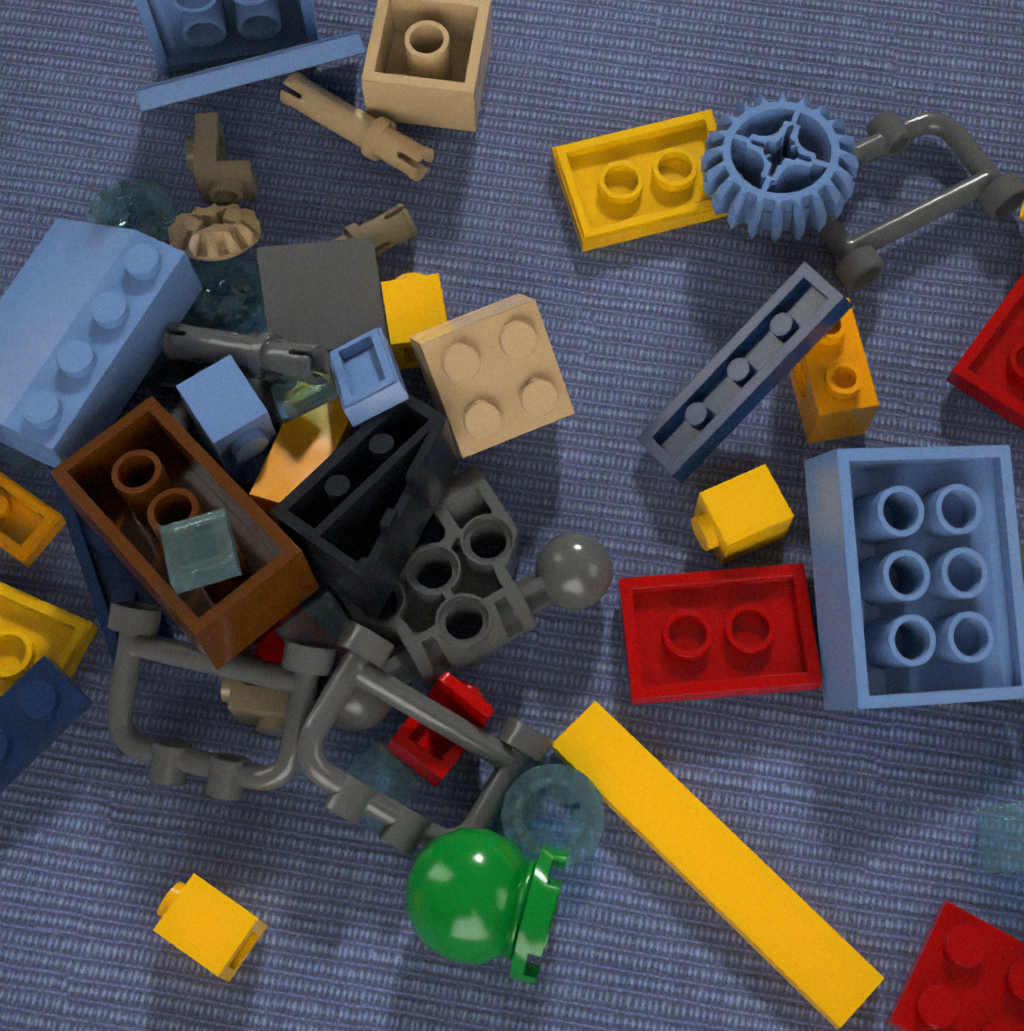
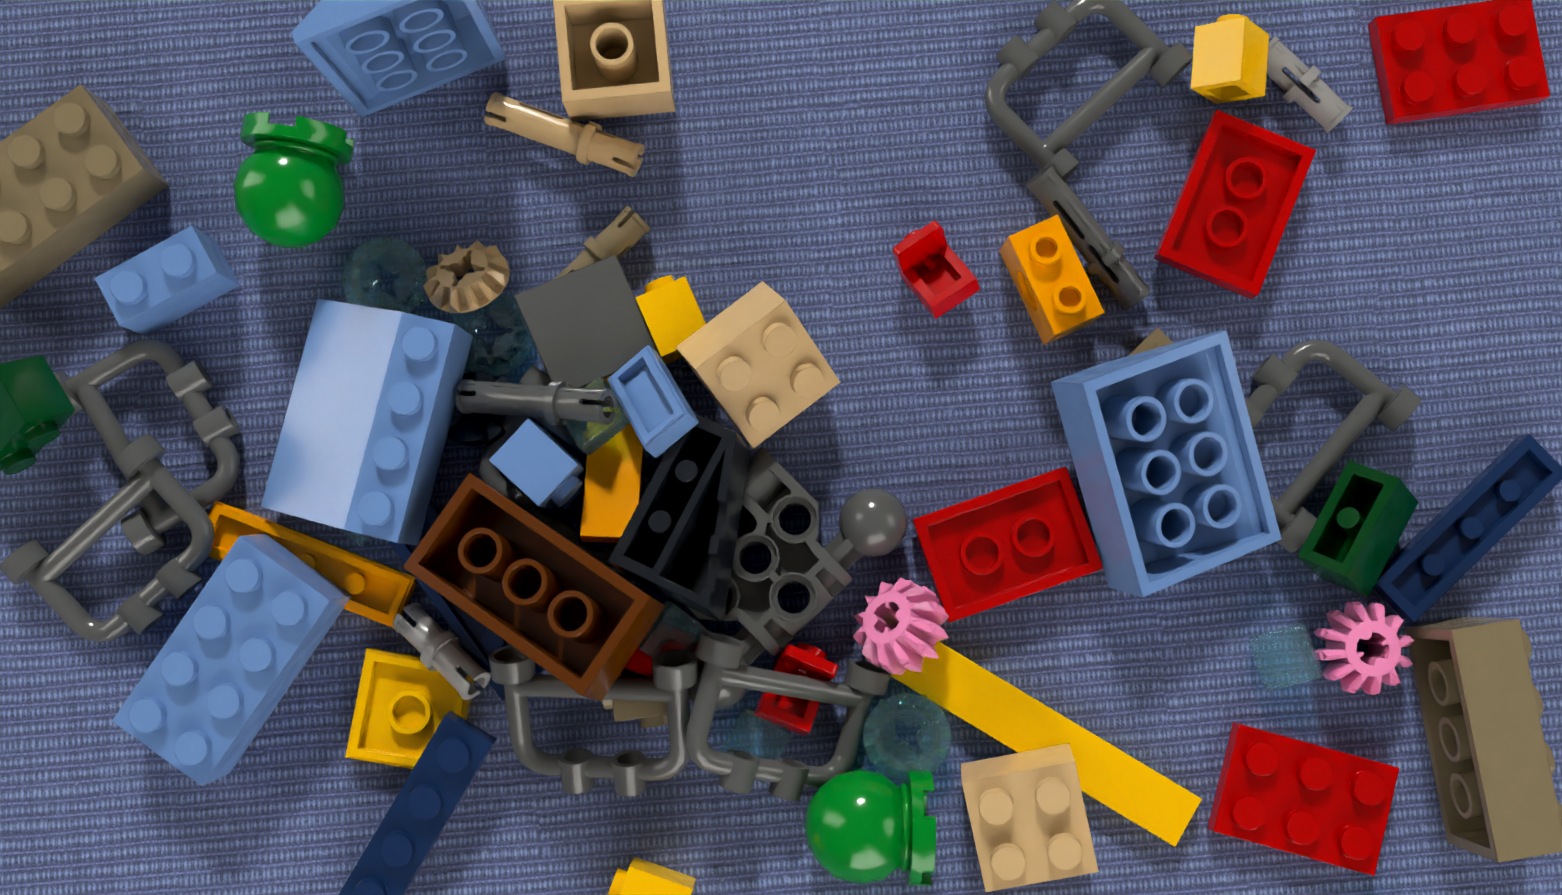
camera: 15 degrees left, 15 degrees up
(64, 593) = (441, 651): none -> light grey pin
(71, 95) = (290, 181): none -> green tile
(200, 551) = (563, 619): clear light blue tile -> none
(207, 156) = (435, 201): dark tan bracket -> none
(249, 70) = (452, 111): medium blue tile -> none
(576, 686) = (901, 626): none -> bright pink gear
(636, 180) = (845, 122): yellow tile -> none
(669, 939) = (1028, 818): none -> tan brick
(698, 324) = (934, 270): none -> red bracket
(741, 515) = (1003, 435): yellow brick -> none
(744, 372) = (980, 307): dark blue plate -> none
(804, 186) = (986, 97): medium blue gear -> none
(882, 343) = (1101, 253): none -> dark grey pin

